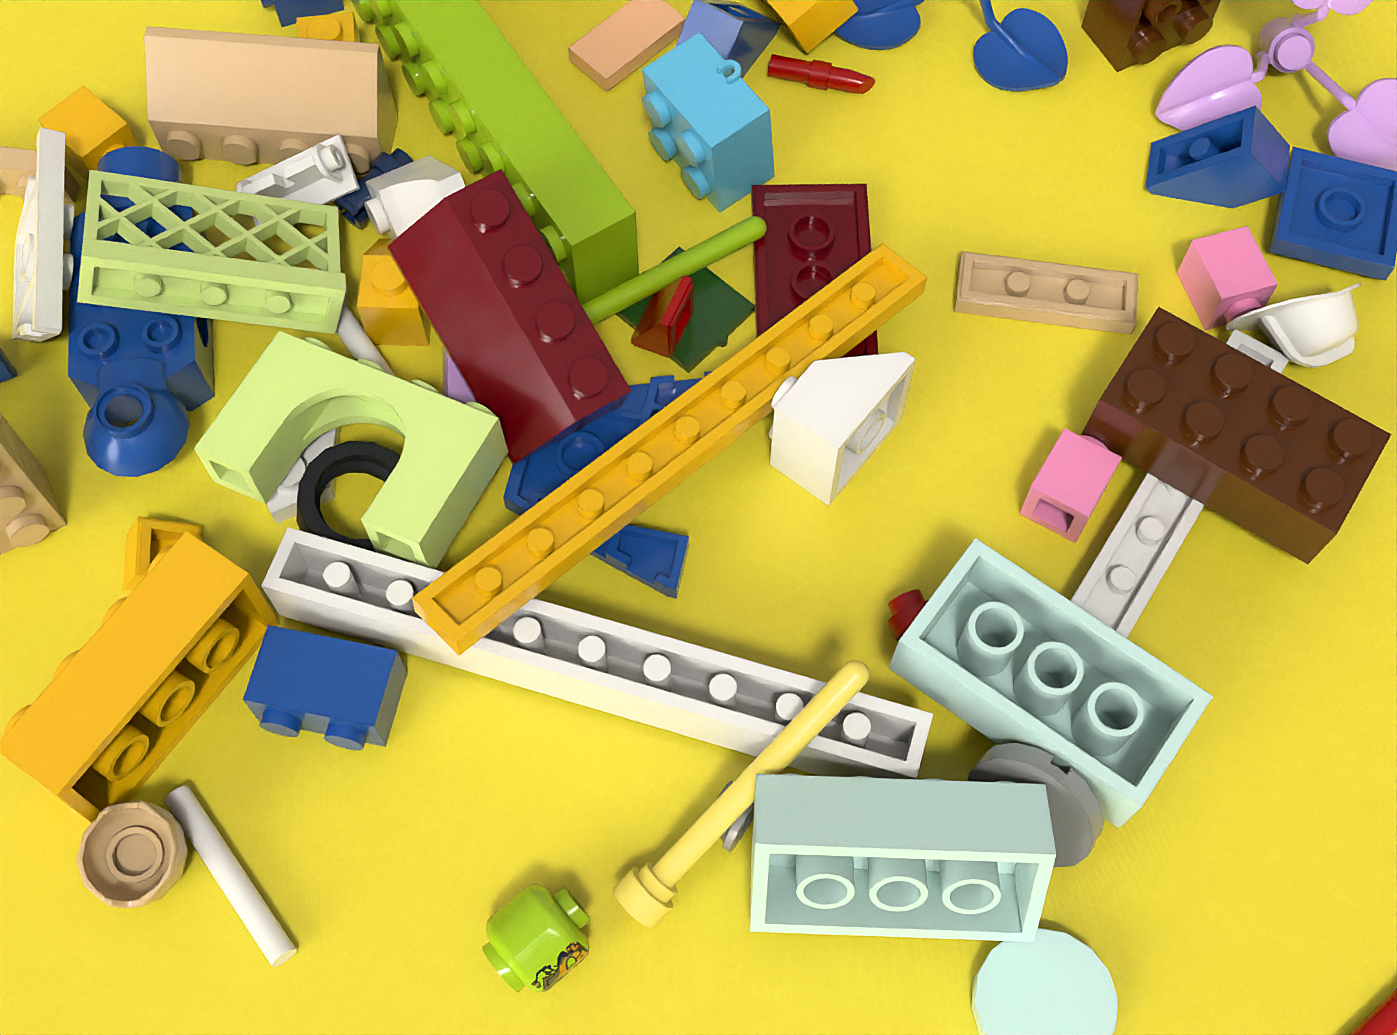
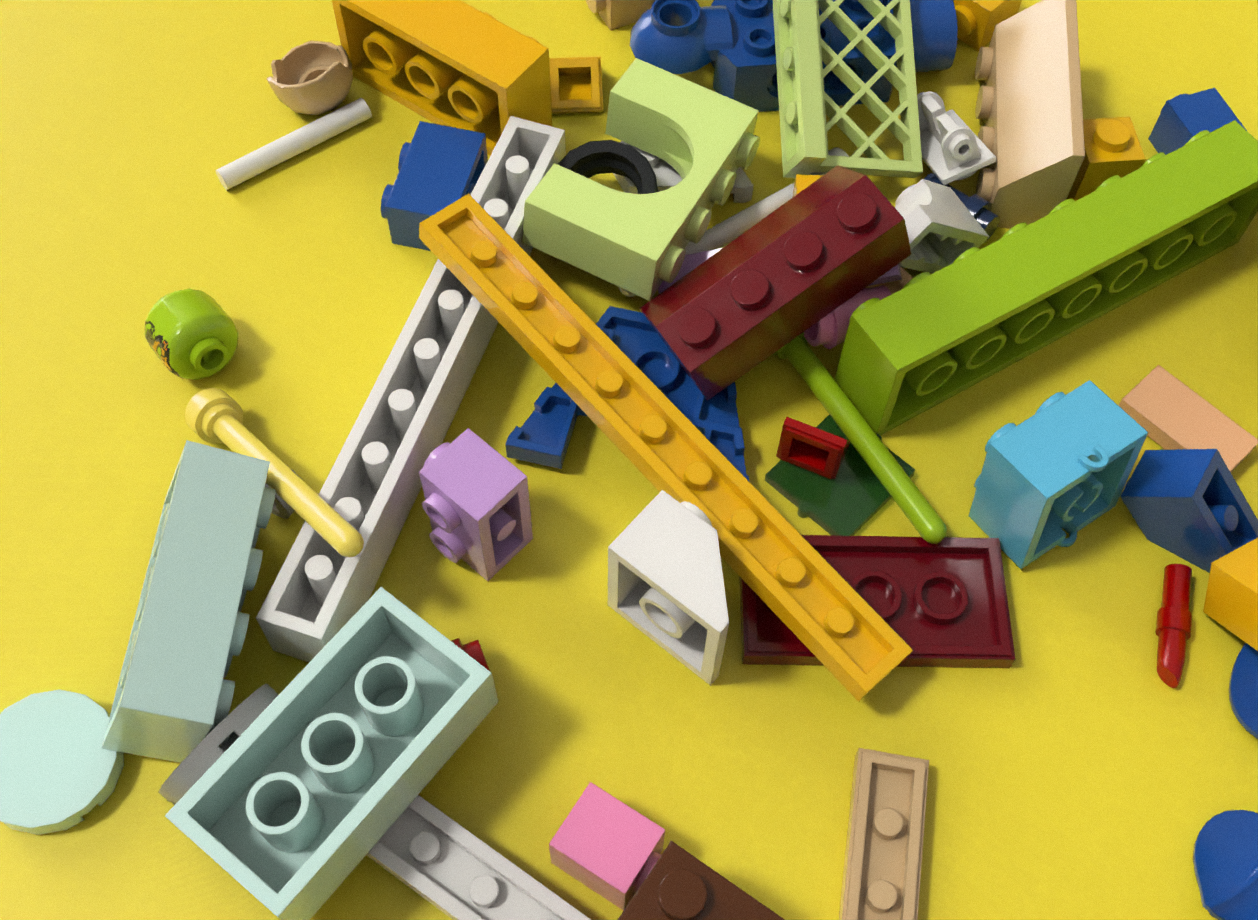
camera: 90 degrees right, 5 degrees down
(764, 597) = (476, 504): none -> lavender brick

